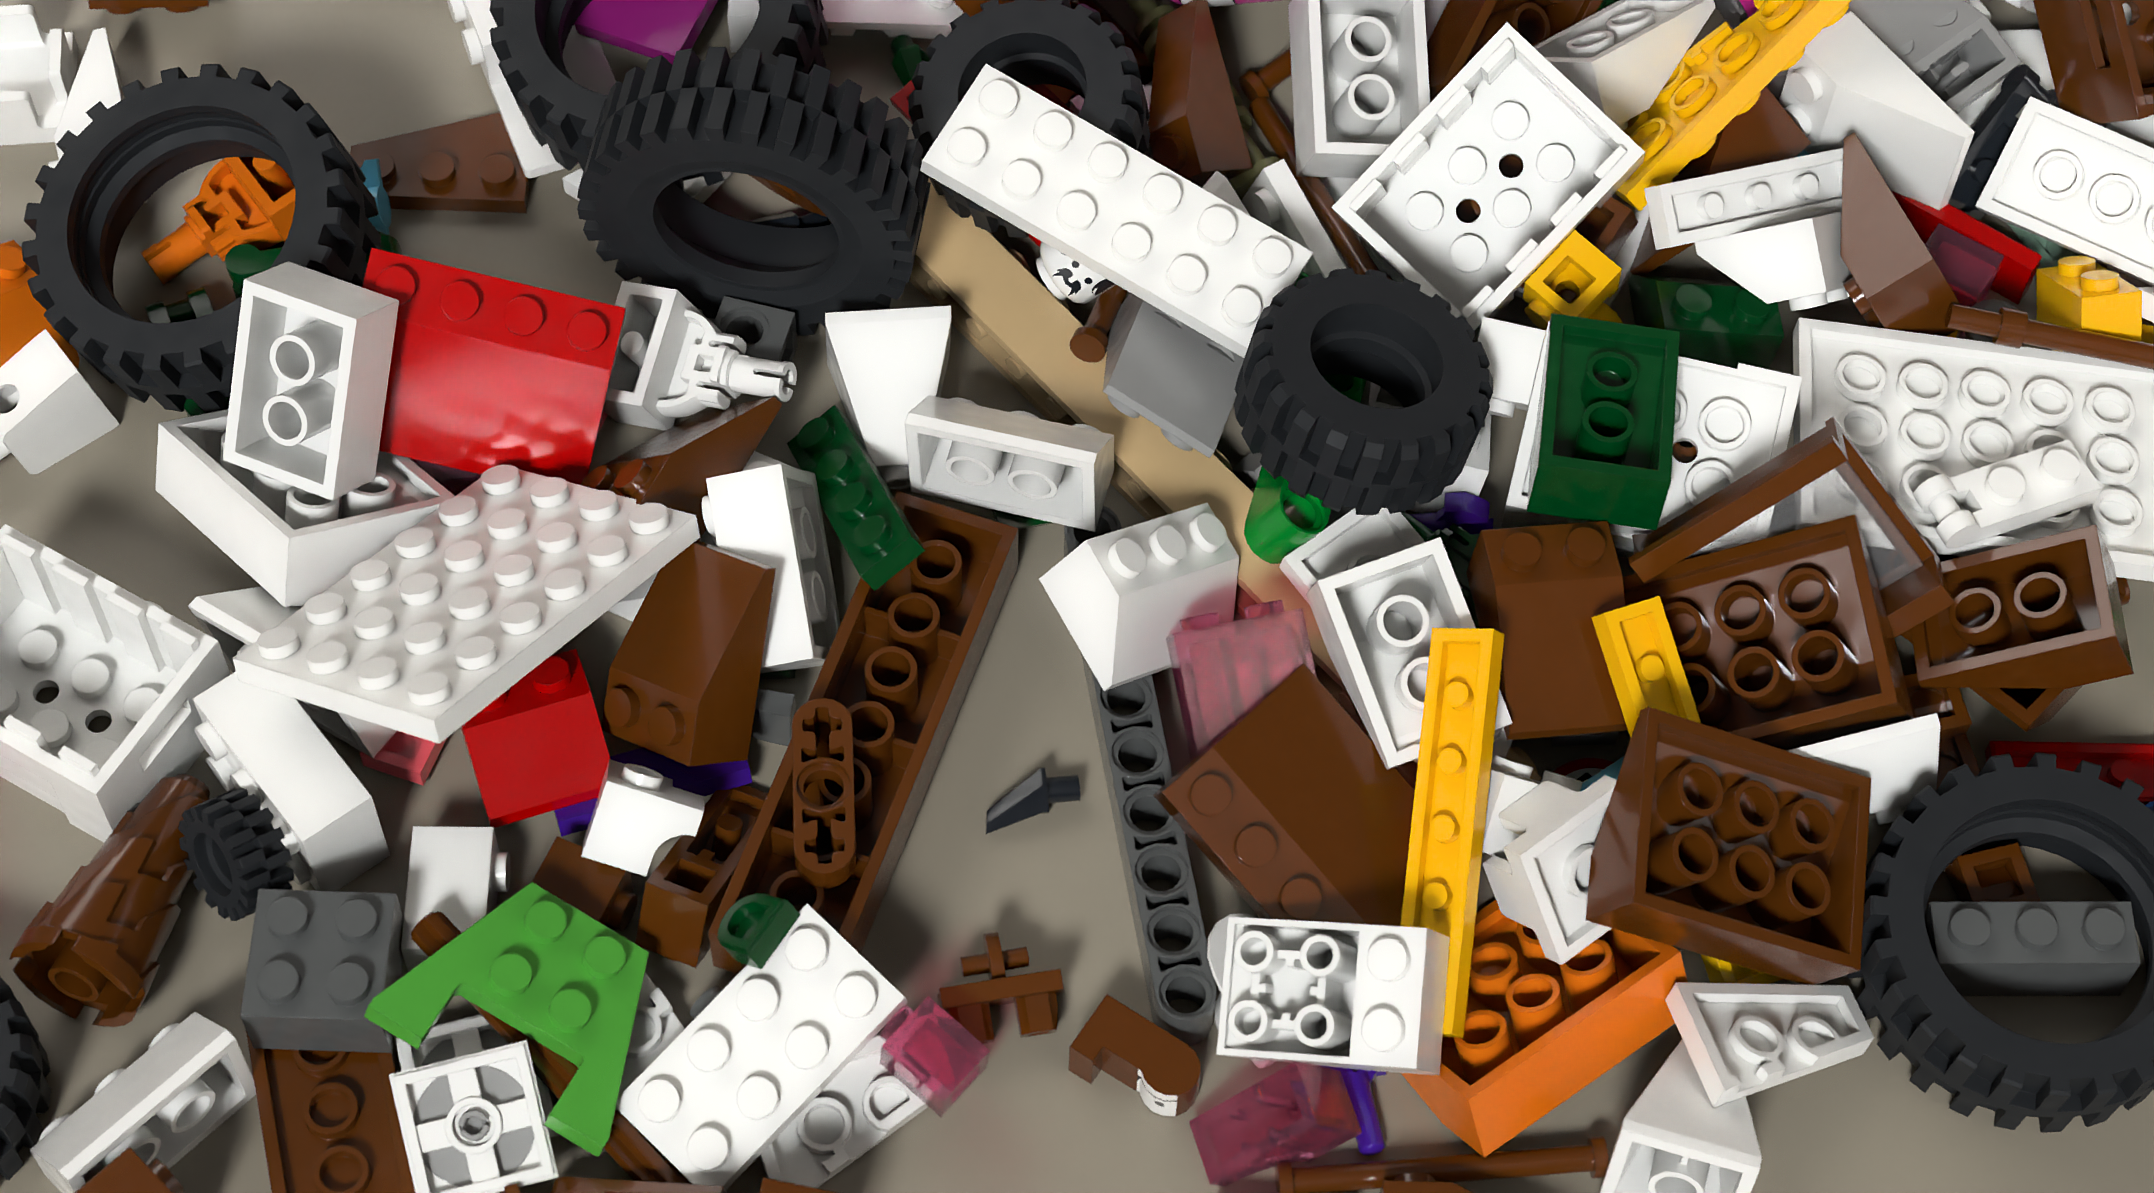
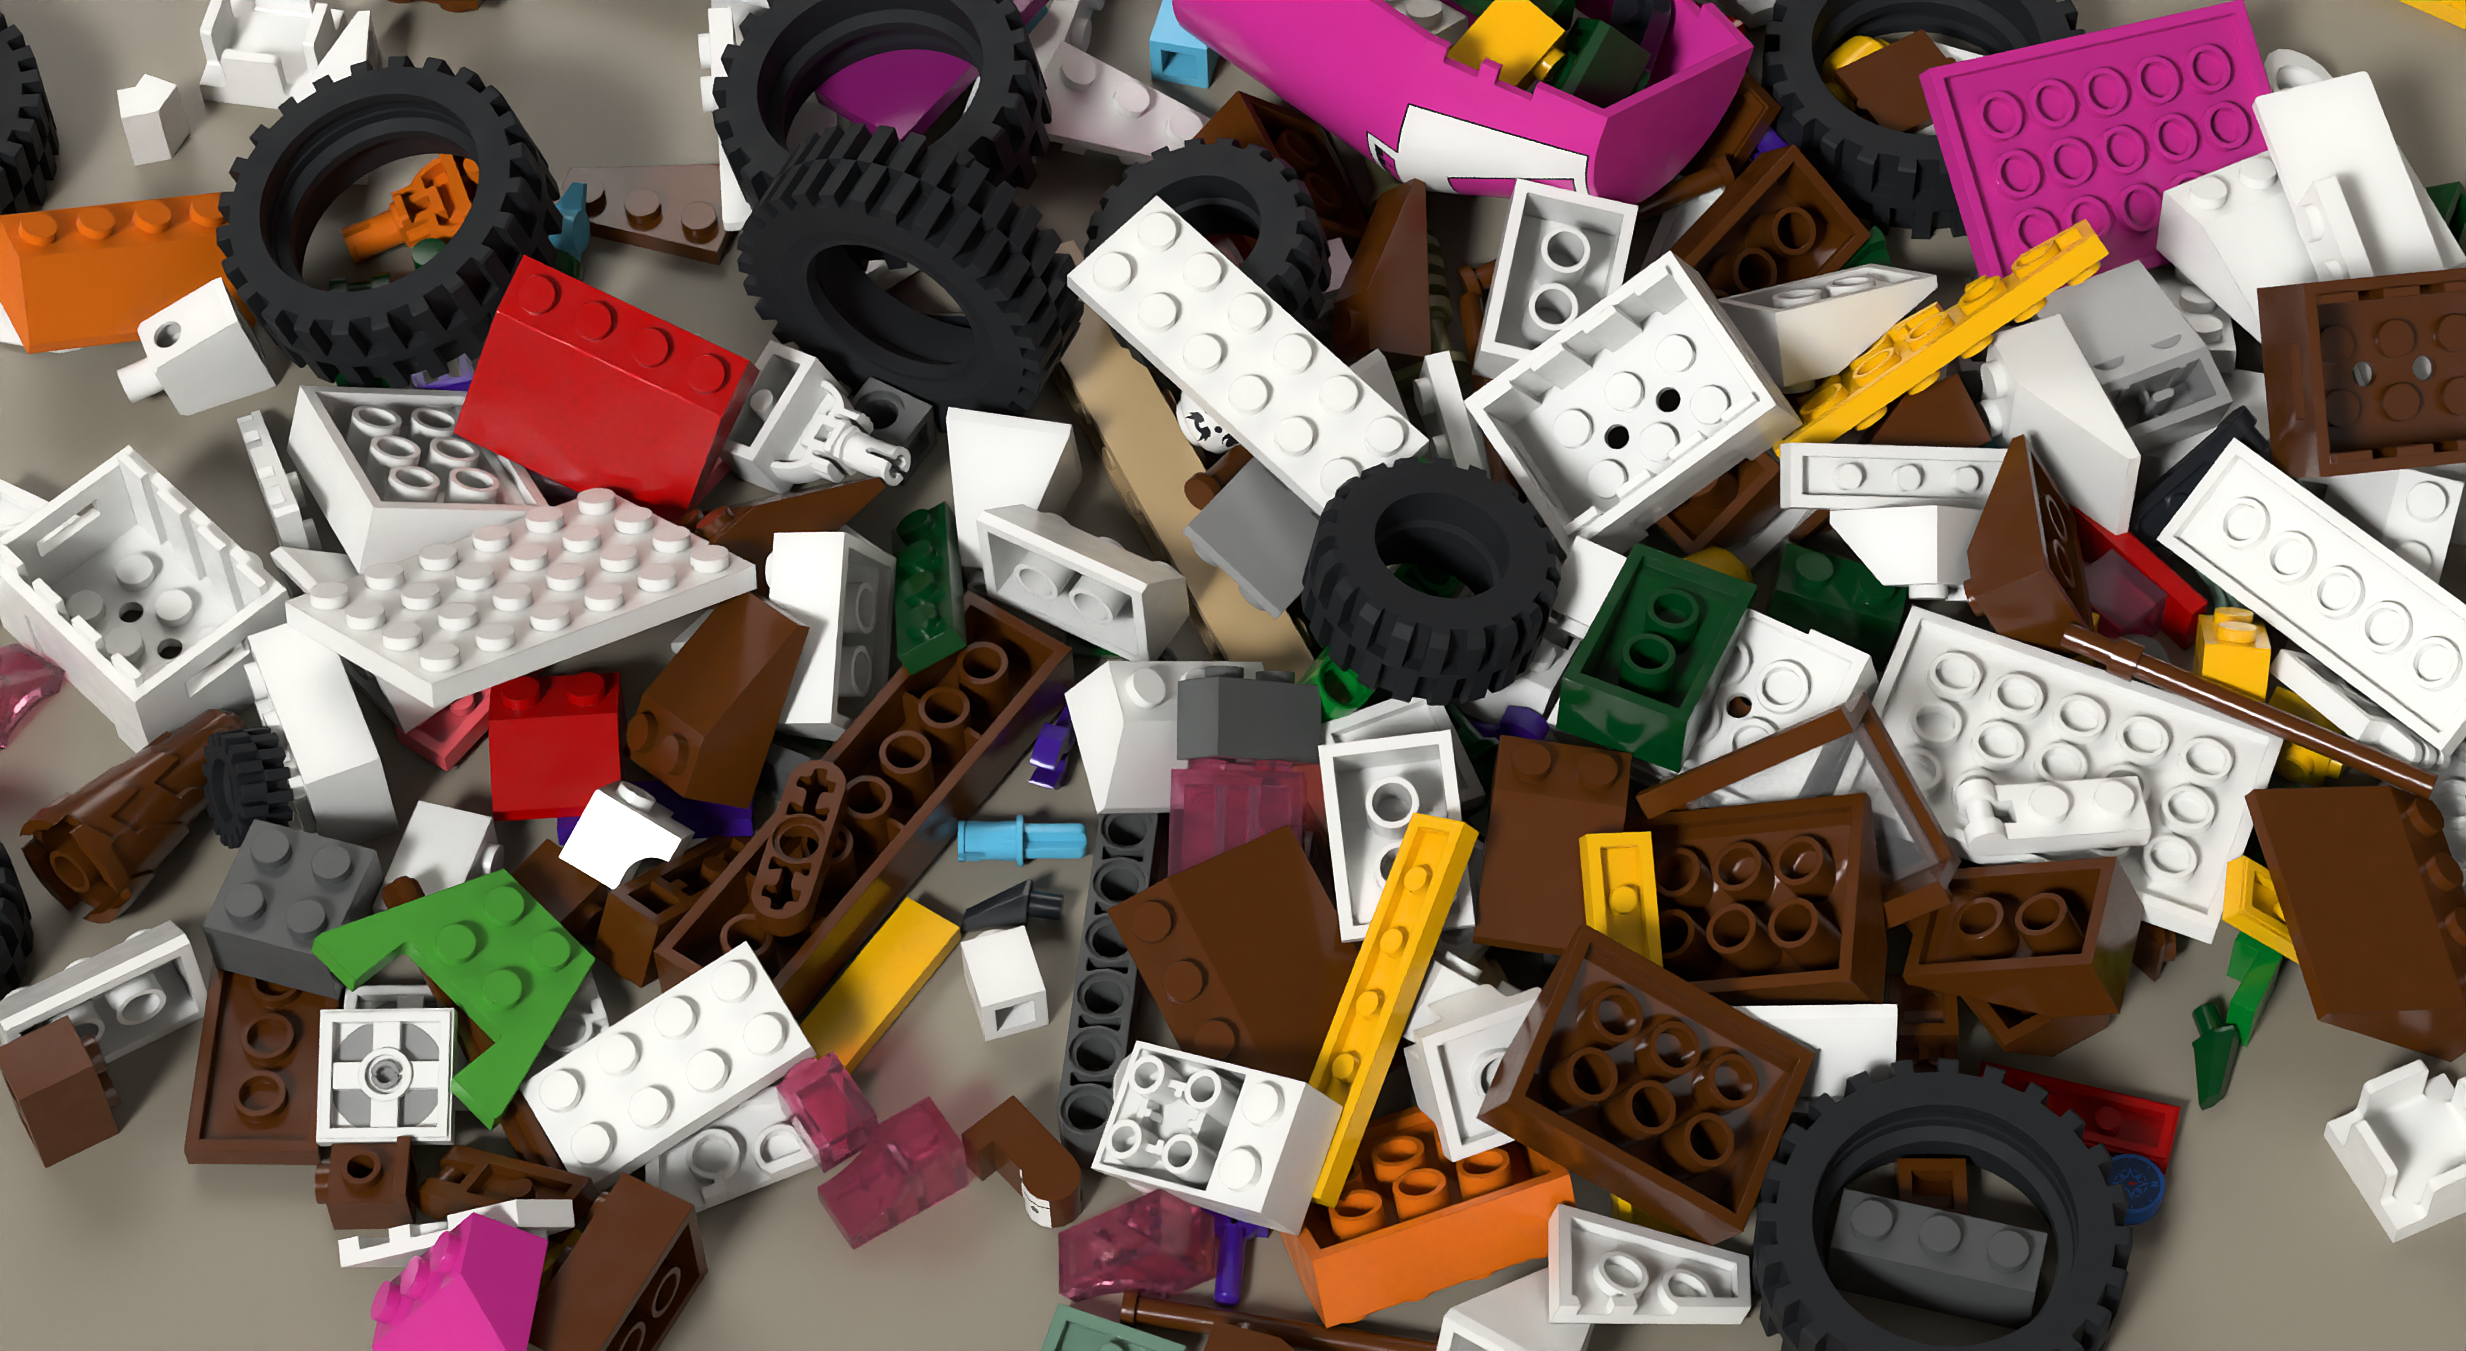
camera: 20 degrees right, 5 degrees down
(160, 532) = (280, 490): none -> white wing
(310, 379) = (436, 367): white brick -> none
(756, 928) = (692, 952): dark green tile -> none
(927, 905) = (880, 983): none -> yellow tile
(1012, 1101) = (898, 1174): none -> clear pink arch
(1016, 729) = (1020, 840): none -> medium azure axle
(1023, 620) = (1052, 752): none -> dark purple bar
(1032, 992) = (946, 1080): reddish brown hips -> none
(1052, 877) = (1004, 982): none -> white brick
(1227, 567) = (1248, 718): none -> dark grey brick
(1575, 267) = (1699, 511): yellow brick -> none

